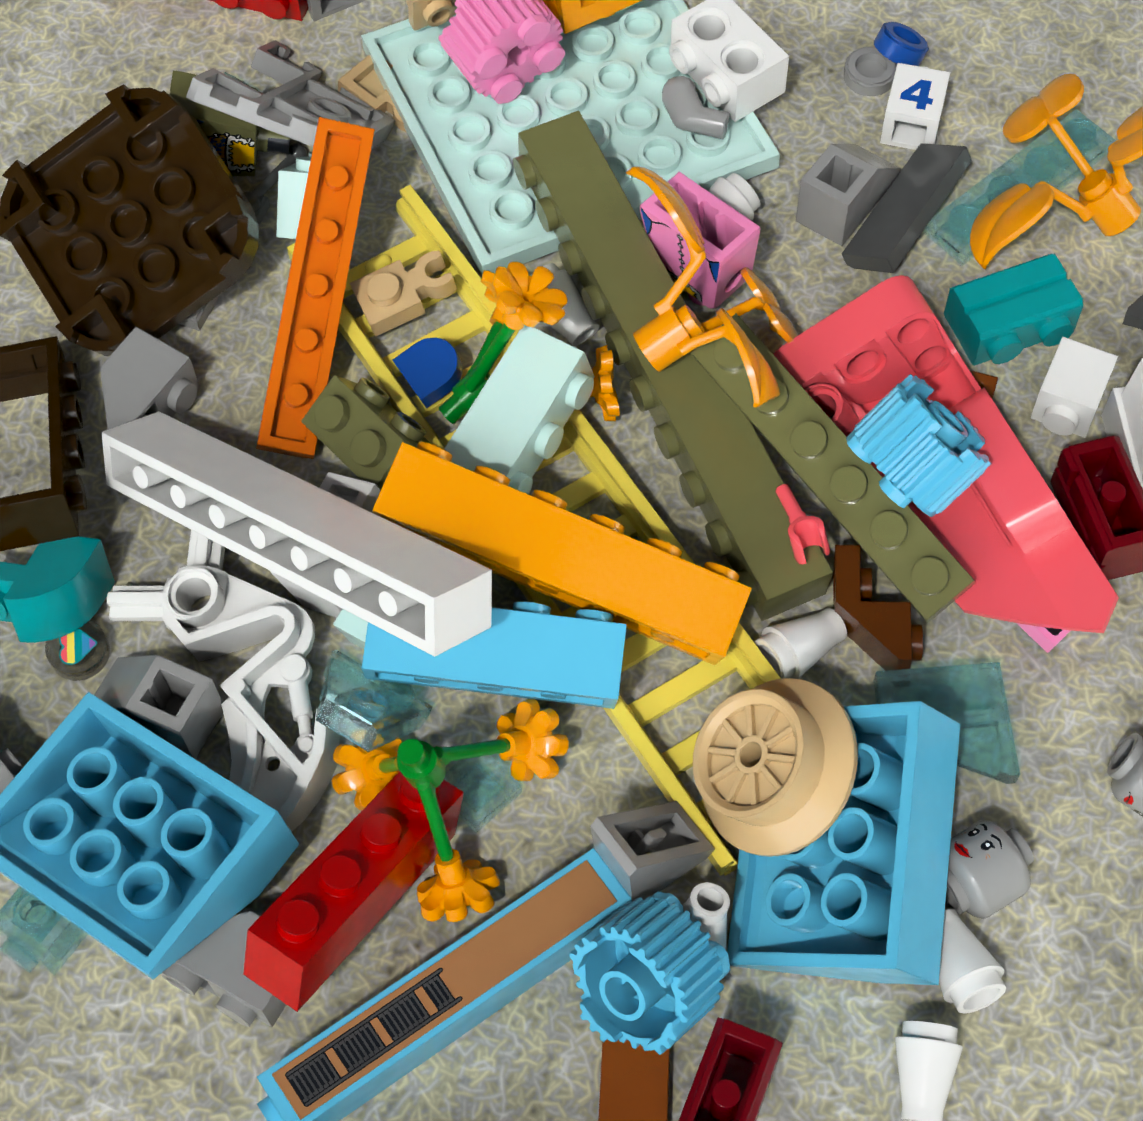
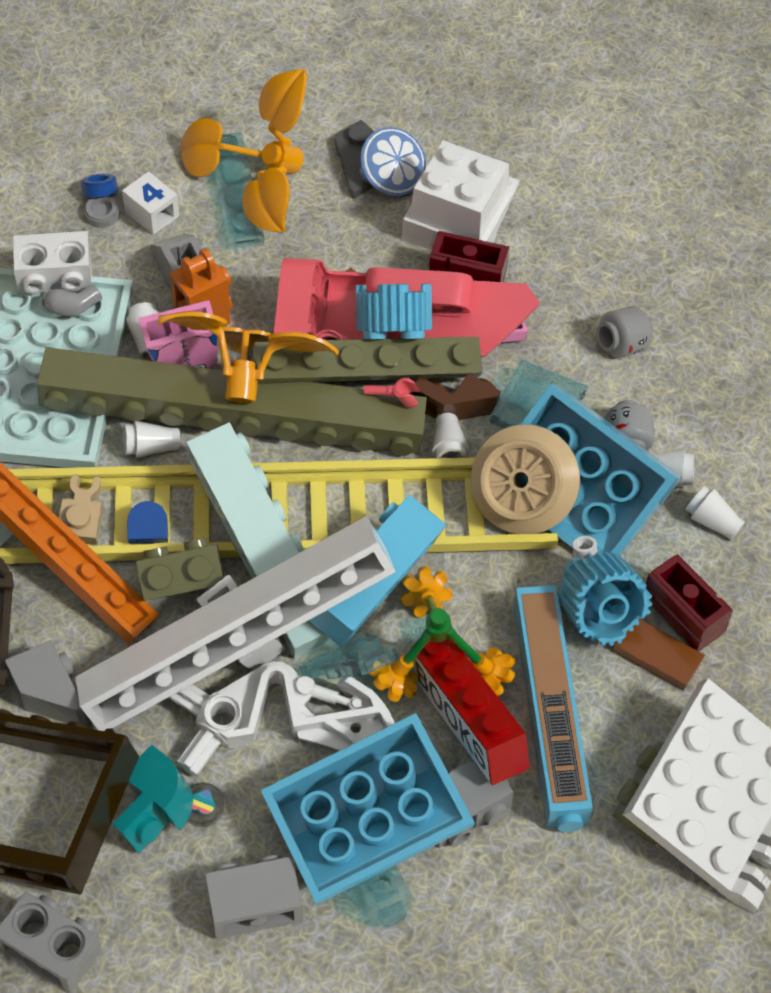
camera: 65 degrees left, 5 degrees down
(164, 699) = (270, 762): light grey slope -> none
(523, 302) = (141, 452): light orange plant -> none
(562, 553) = (380, 478): light orange brick -> none
(649, 846) = (532, 563): light grey slope -> none
(798, 229) = (200, 281): none -> orange brick
(906, 207) = (200, 220): dark grey tile -> none
(1014, 310) = (318, 230): teal brick -> none
(1073, 388) = (384, 238): white brick -> none

